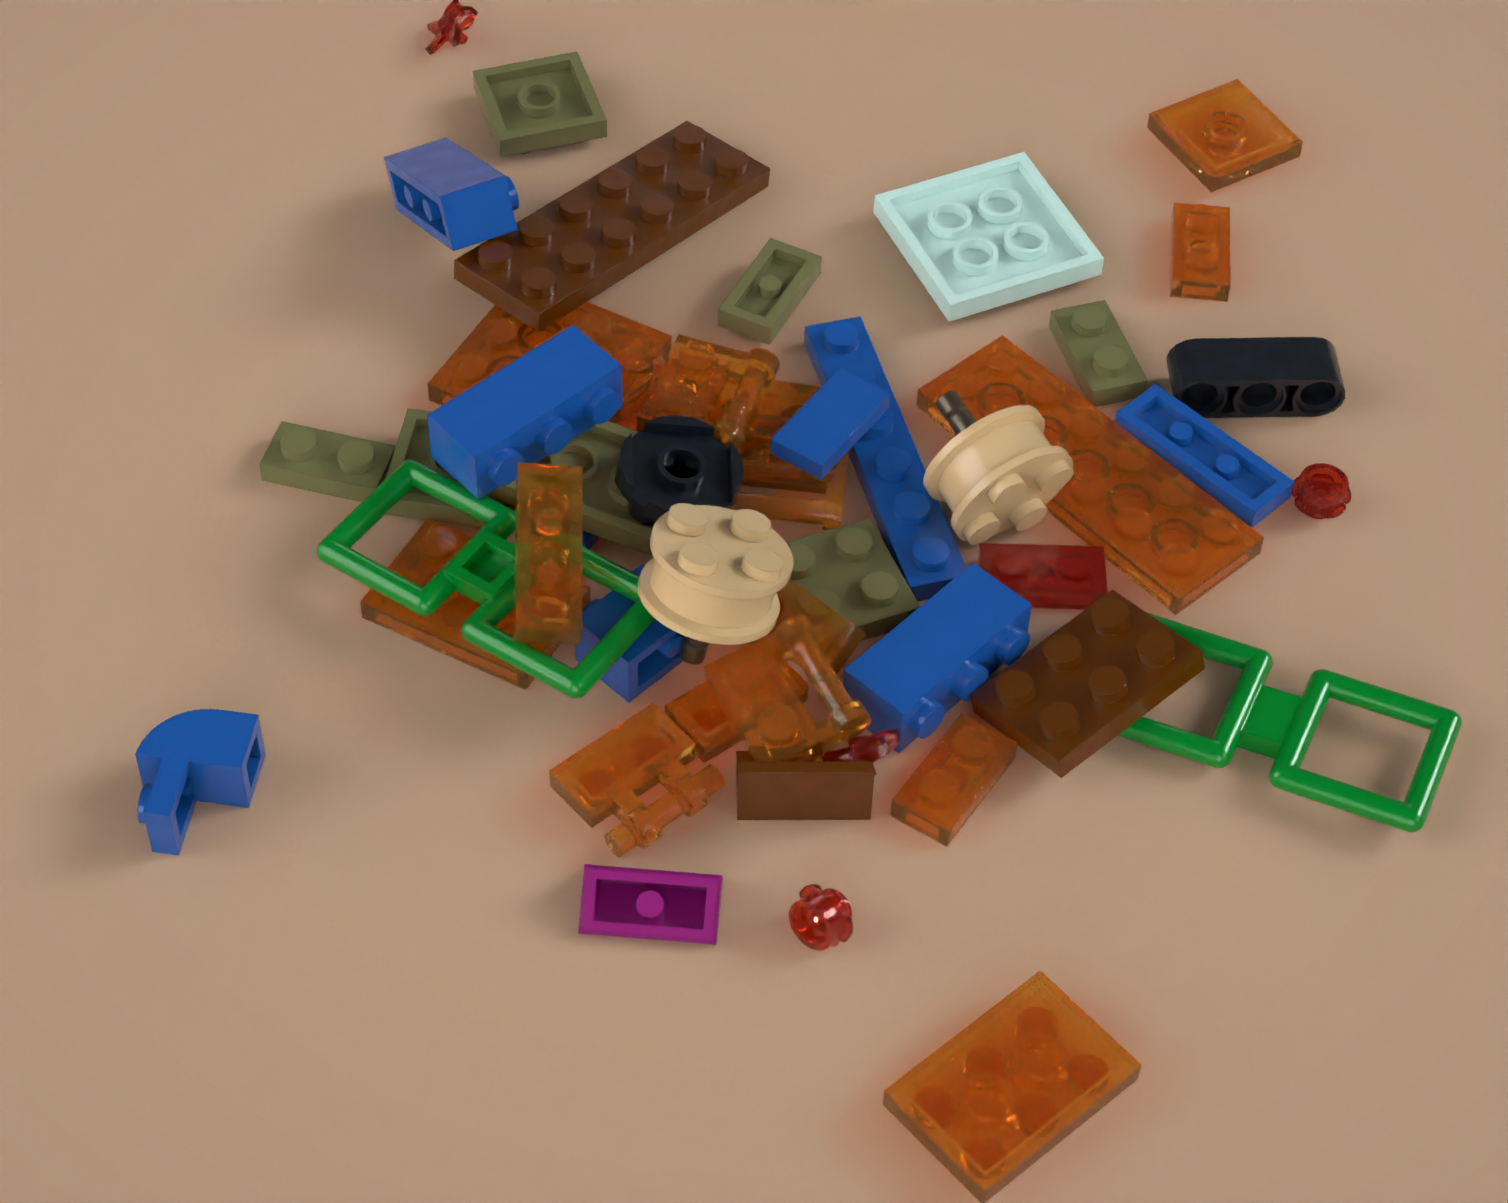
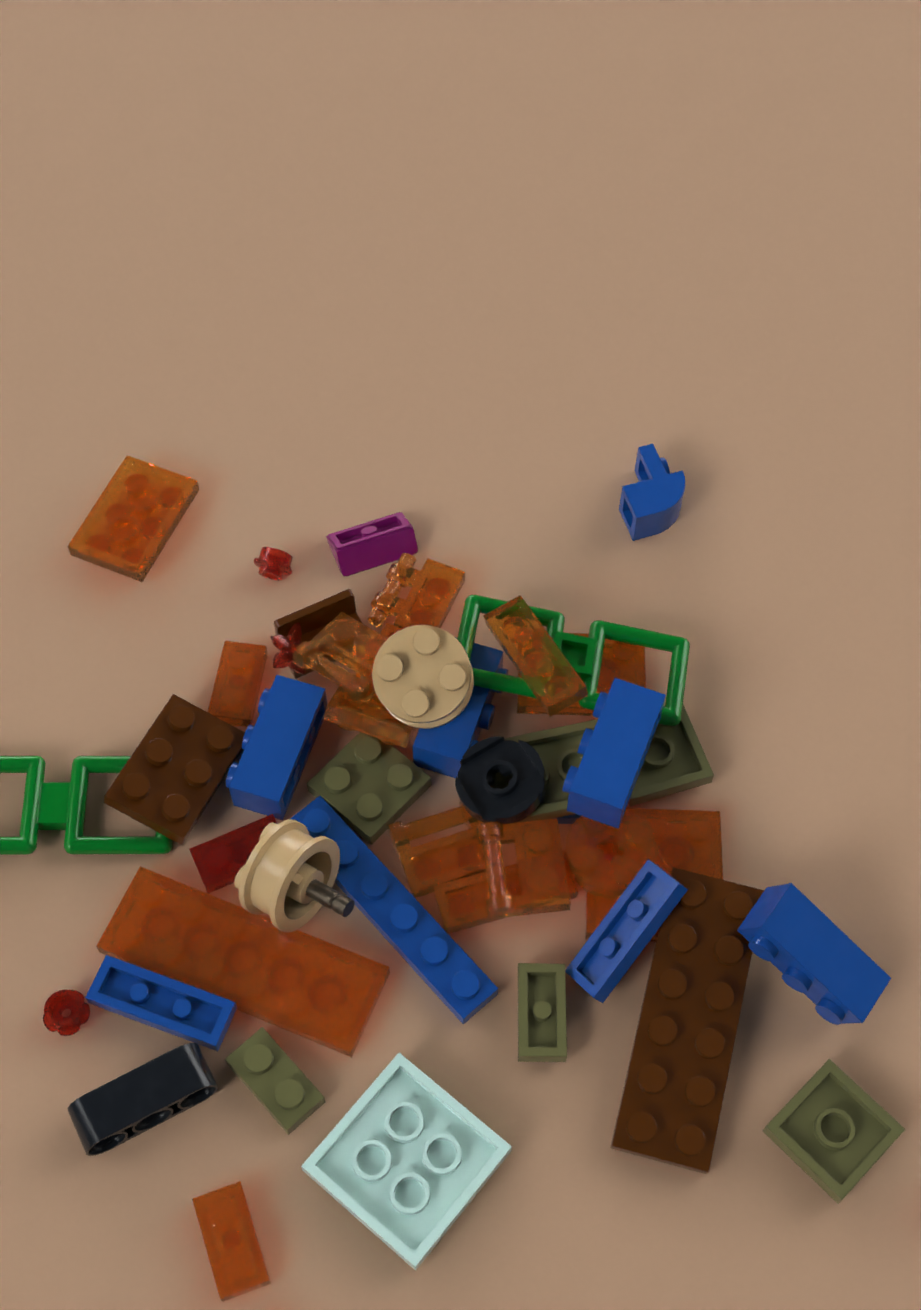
camera: 155 degrees right, 10 degrees up
(325, 462) = (740, 730): olive plate -> none
(633, 289) = (625, 931): none -> blue plate
(830, 423) = (428, 883): blue tile -> none

